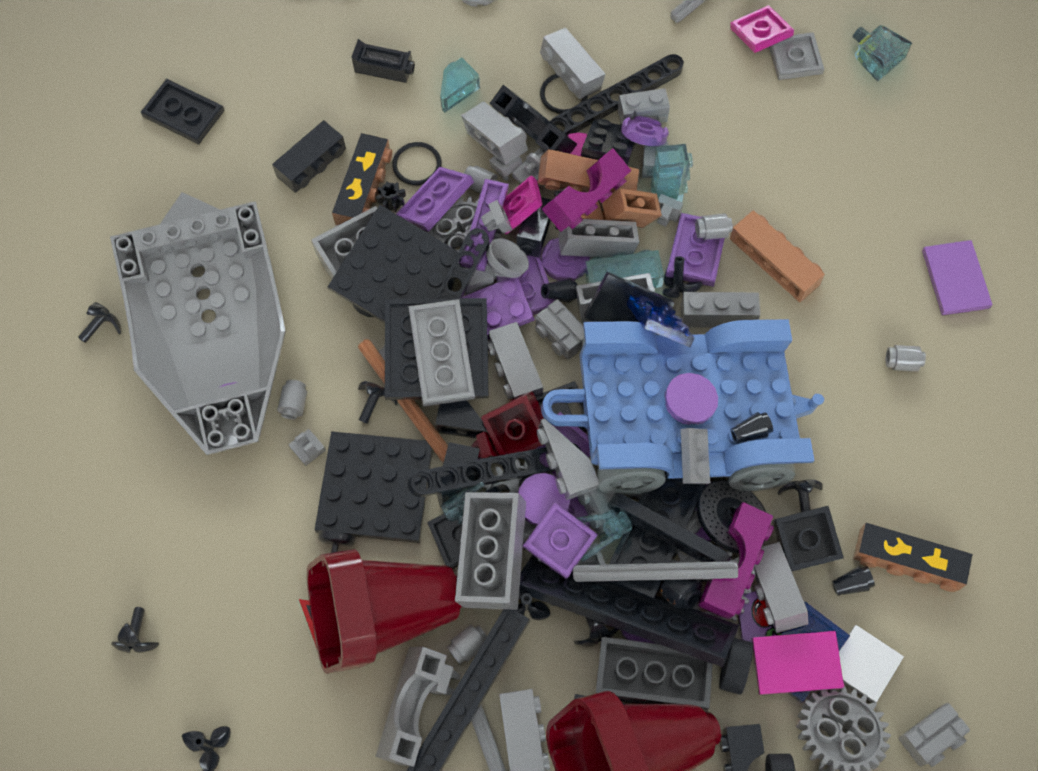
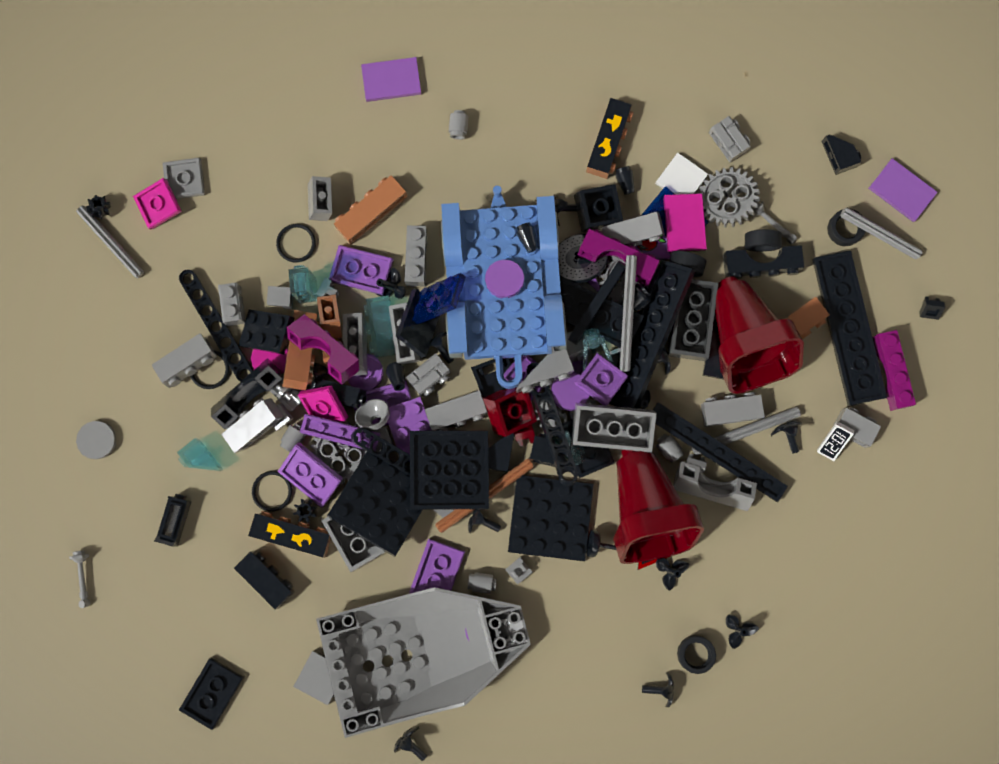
camera: 90 degrees left, 15 degrees up
(160, 672) = (696, 669): none -> black tyre
(285, 646) = (676, 570): none -> black plant
(314, 349) = (437, 567): none -> medium lavender tile
(441, 352) = (455, 465): light grey tile -> none
(496, 218) = (341, 421): light grey tile -> none
(644, 131) = (258, 303): medium lavender tile -> none
(695, 456) = (549, 278): light grey plate -> none
(713, 226) = (347, 255): light grey brick -> none
(729, 196) = (295, 226): none -> black tyre
(785, 195) = (319, 198): none -> light grey brick
(880, 50) = (184, 111): clear light blue torso -> none

